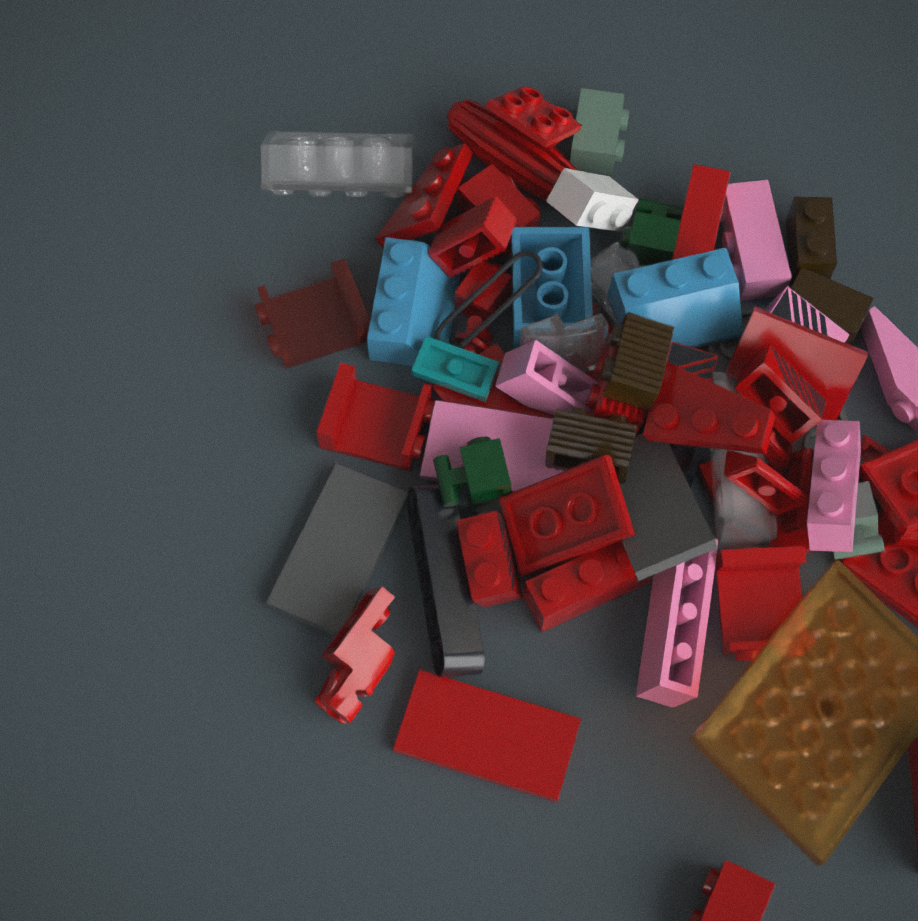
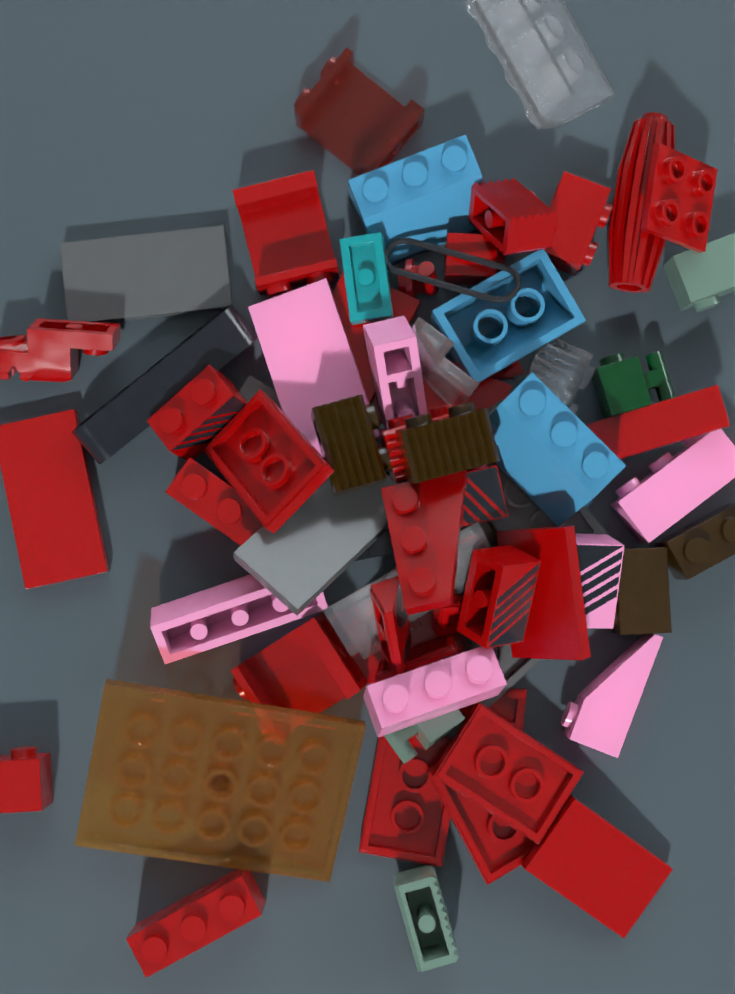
camera: 65 degrees right, 20 degrees up
(430, 197) = (532, 151): red wing -> none
(482, 471) = (271, 361): dark green brick -> none
(592, 200) = (622, 307): white brick -> none

